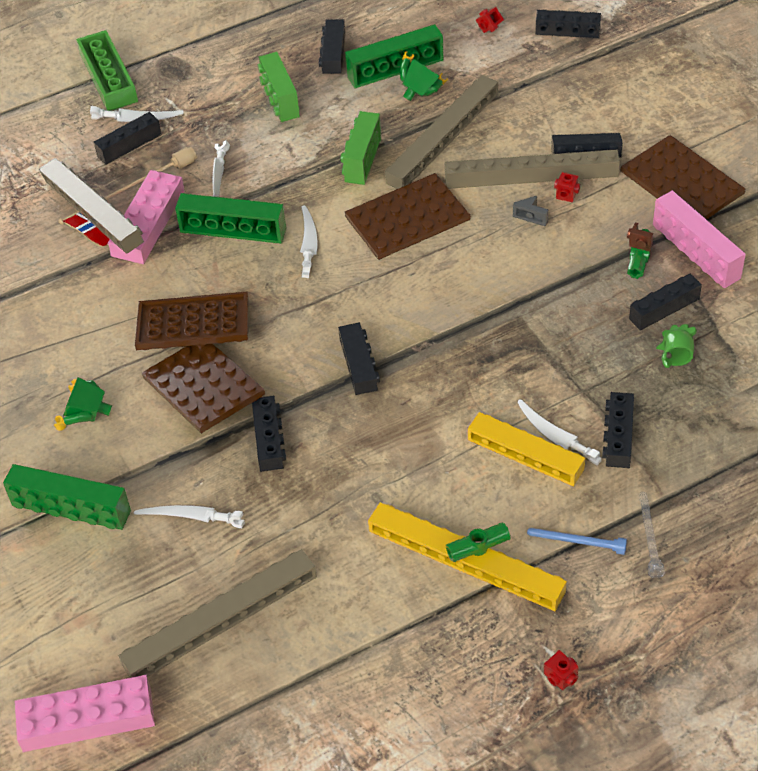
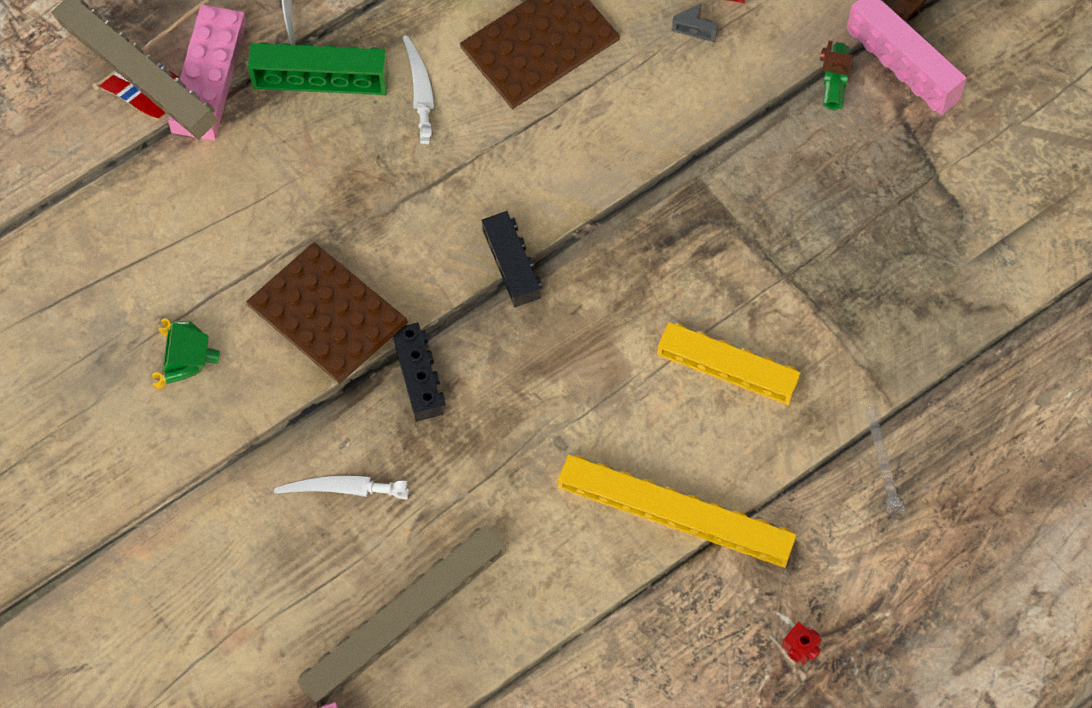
camera: 10 degrees left, 15 degrees up
(67, 497) = (193, 484): green brick -> none
(192, 321) = (297, 224): reddish brown plate -> none
(488, 538) = (703, 490): green piece -> none
(558, 435) = (762, 340): white sword -> none
(617, 545) = (847, 479): medium blue piece -> none
(619, 430) = (835, 327): black brick -> none
(665, 301) = (873, 144): black brick -> none
(679, 344) = (895, 204): bright green piece -> none

